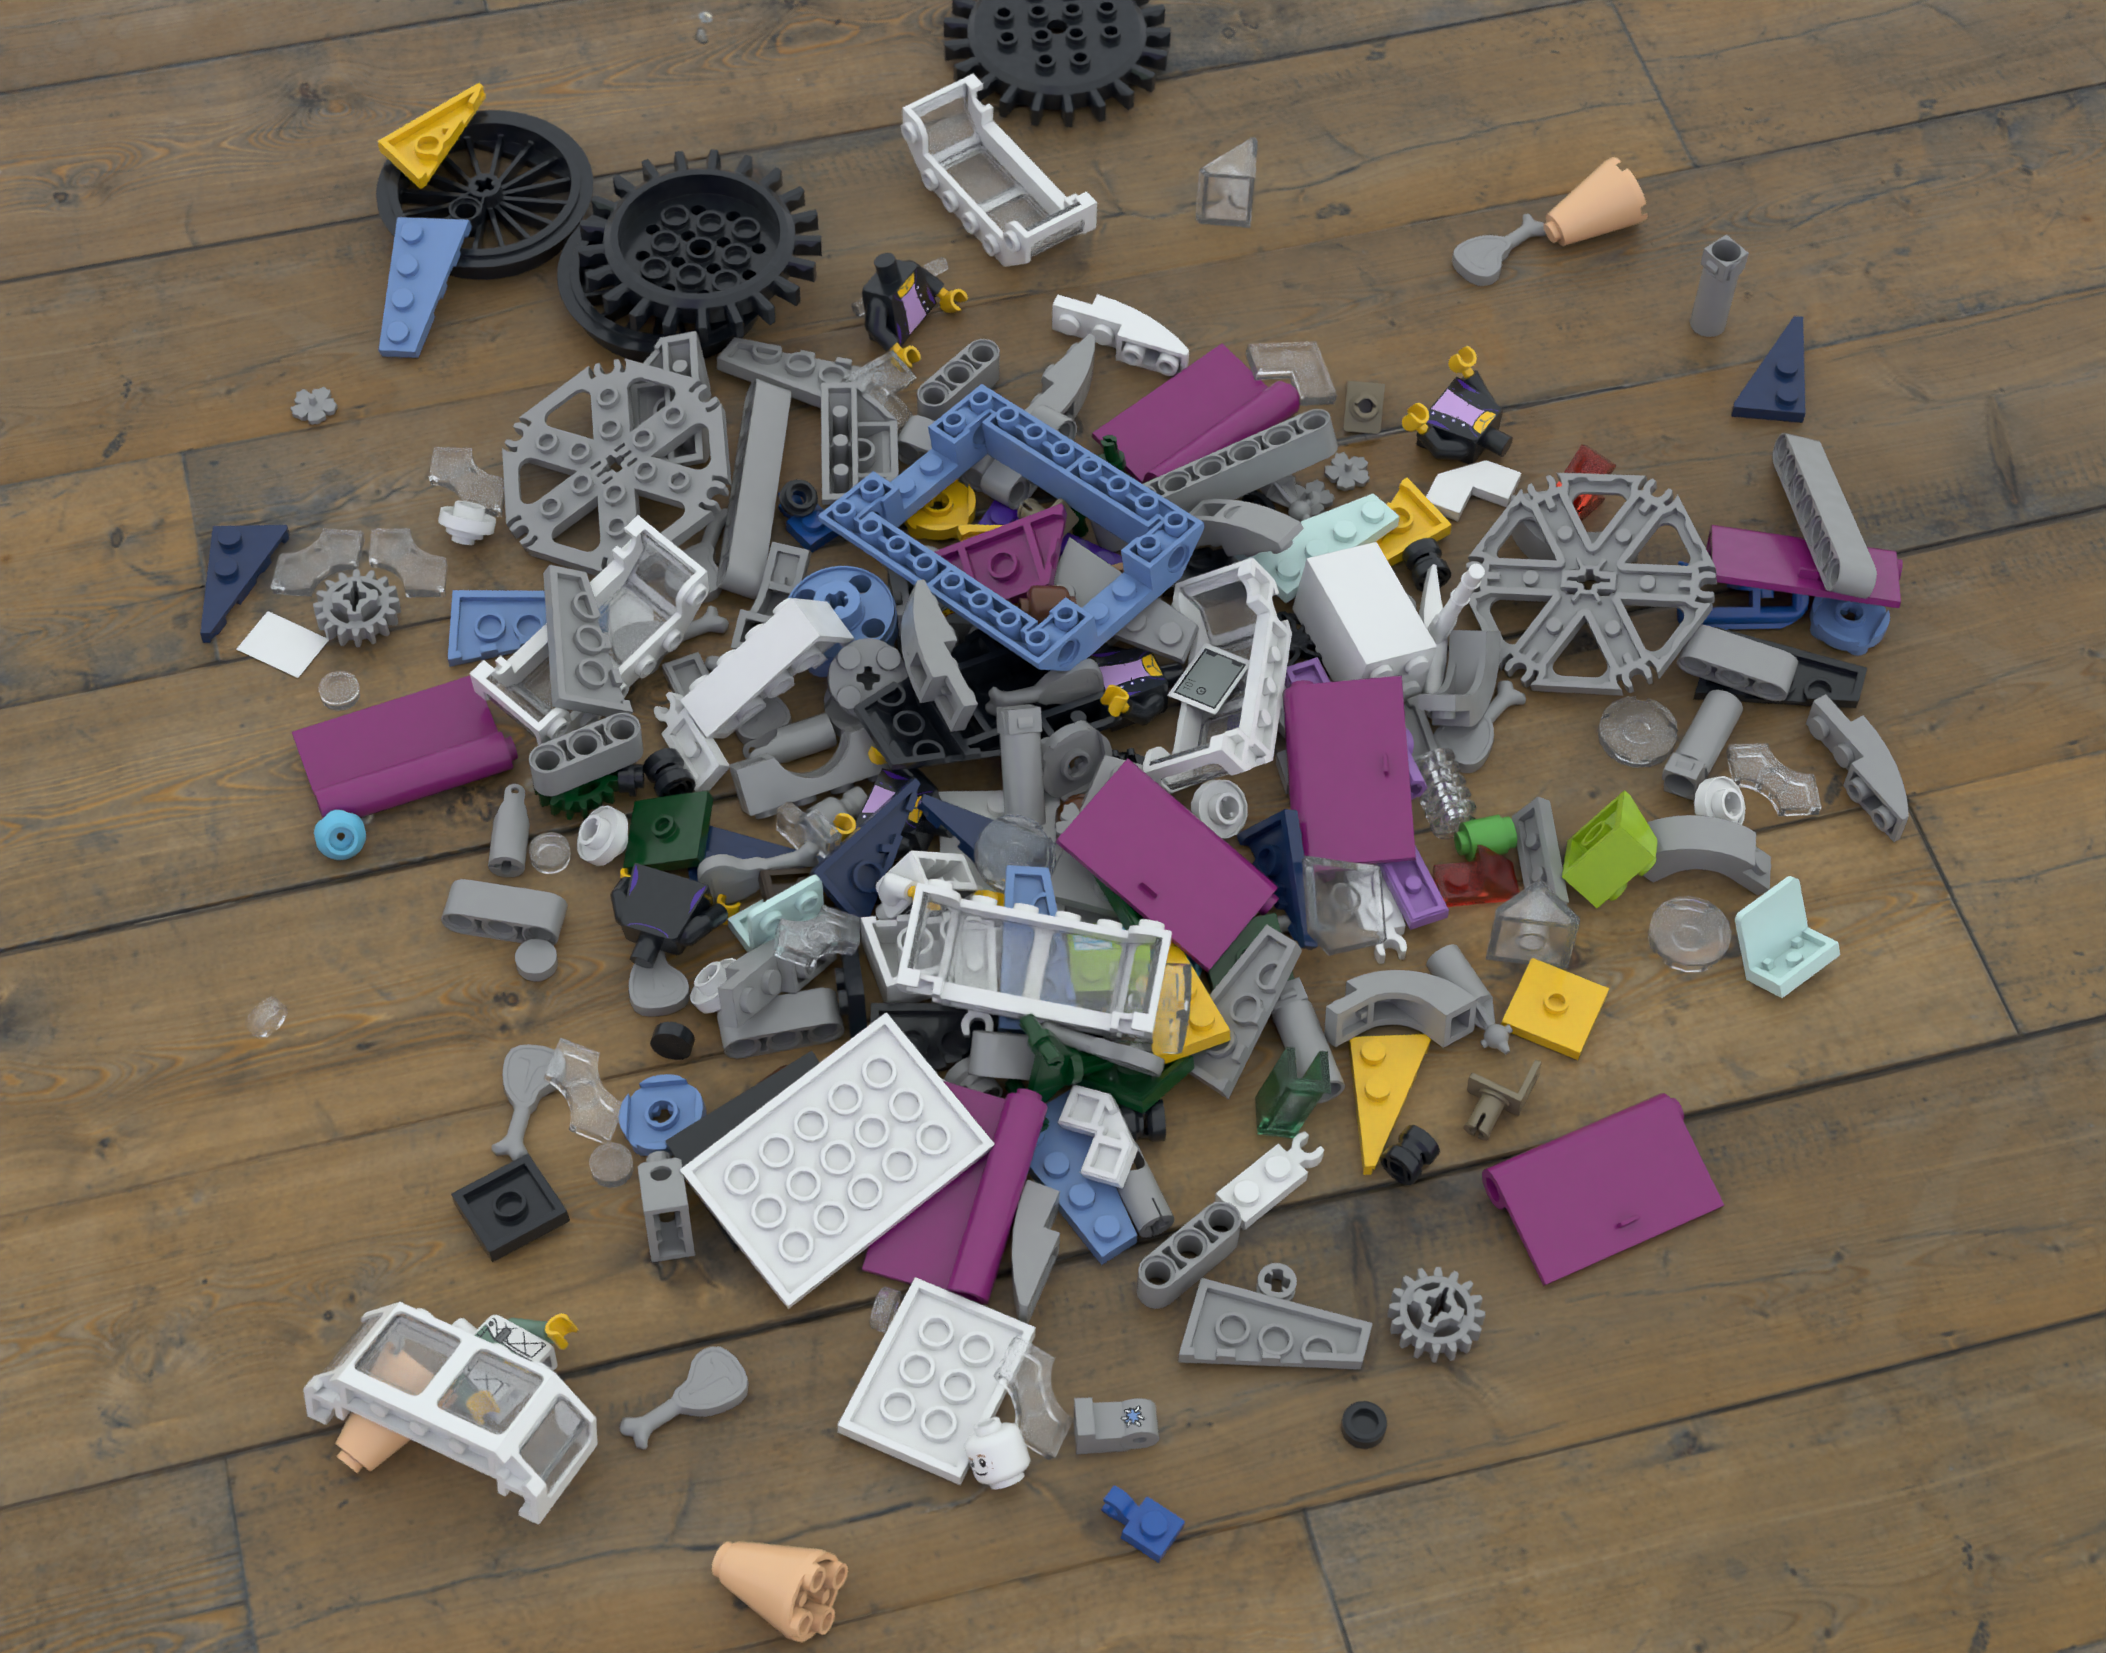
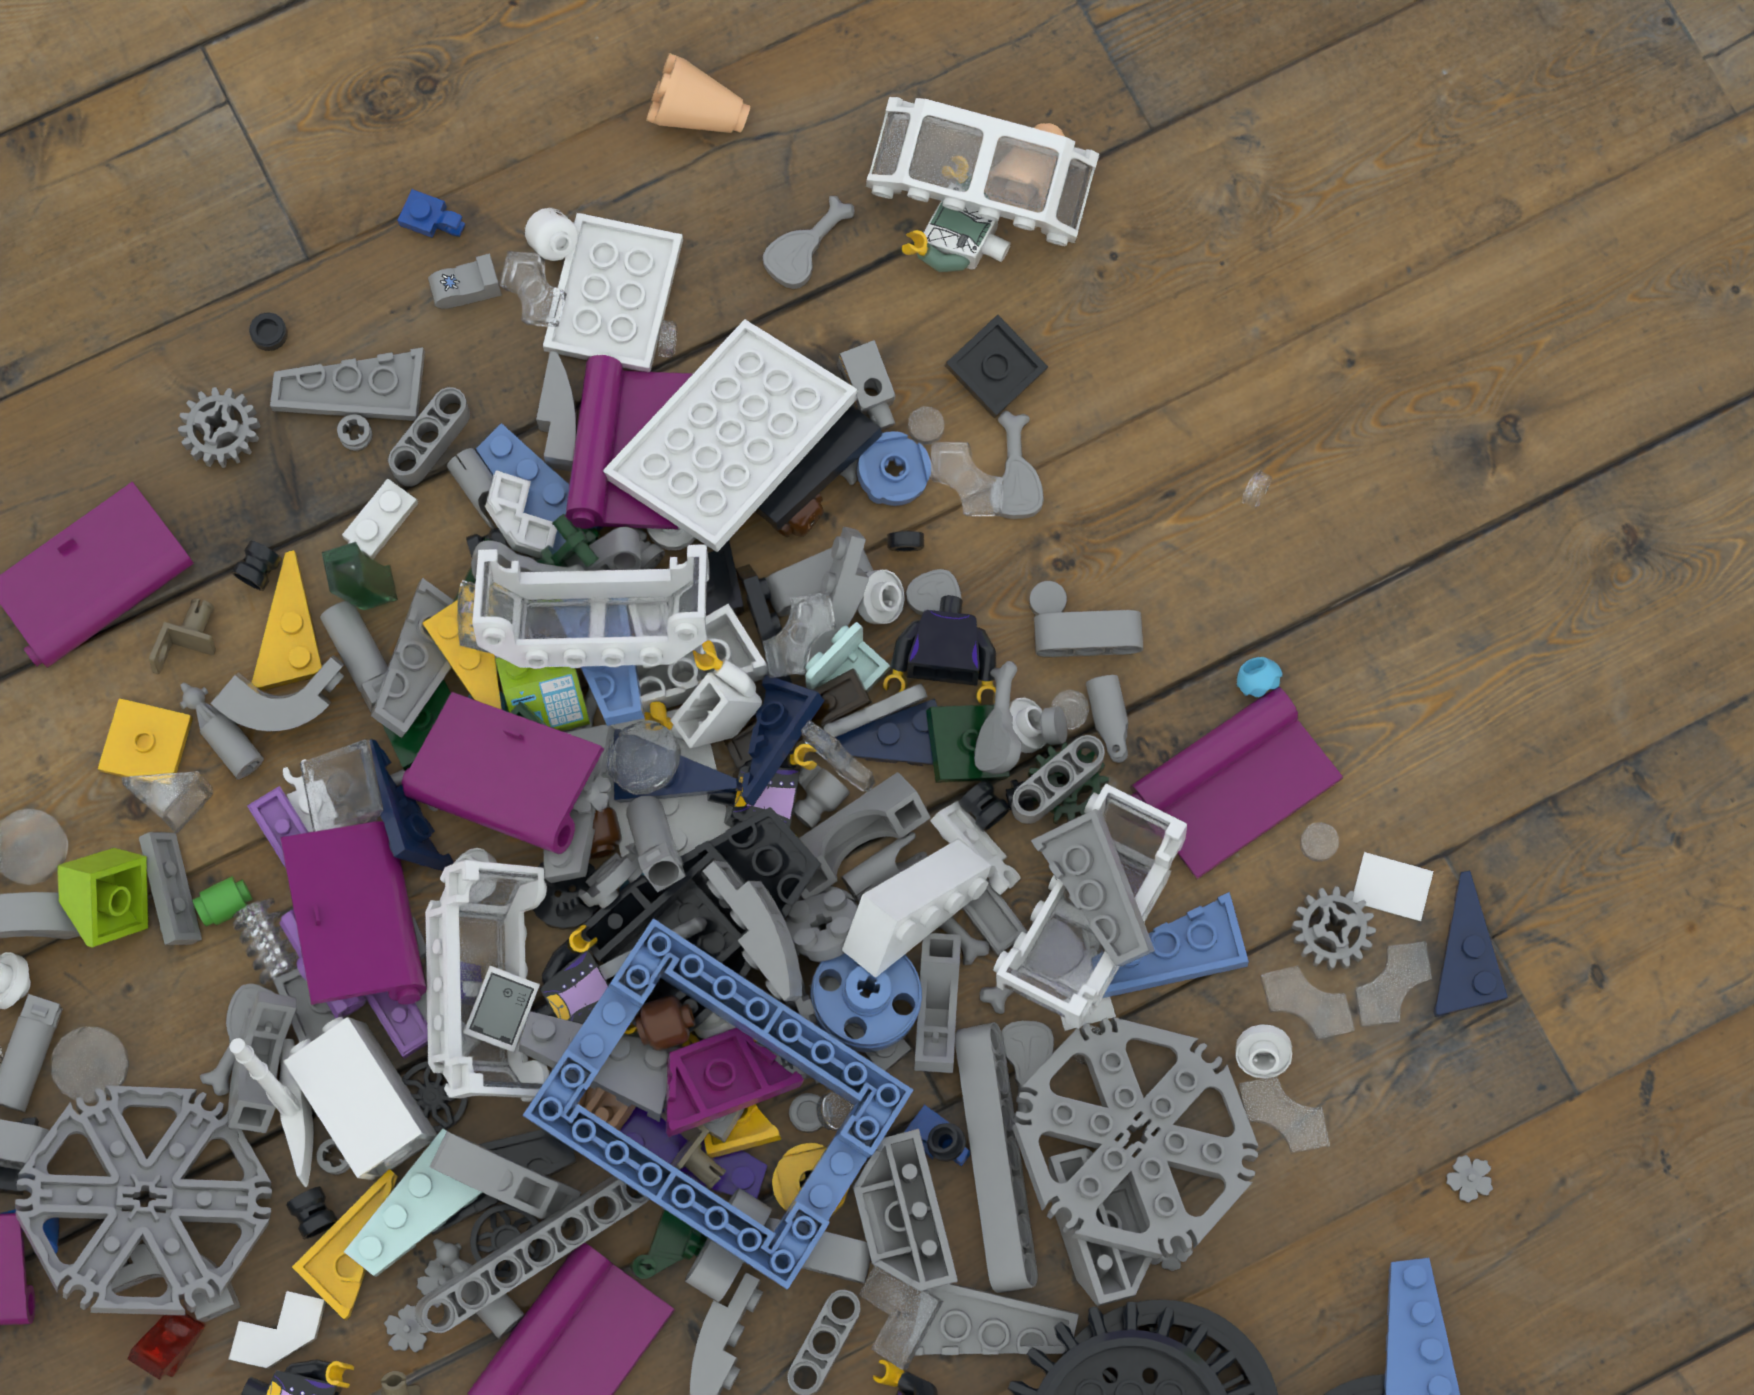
camera: 170 degrees right, 20 degrees up
(572, 823) = (1054, 725): none -> light grey tile
(639, 807) = (998, 744): none -> light grey piece
(1481, 881) = (233, 857): clear red slope -> none

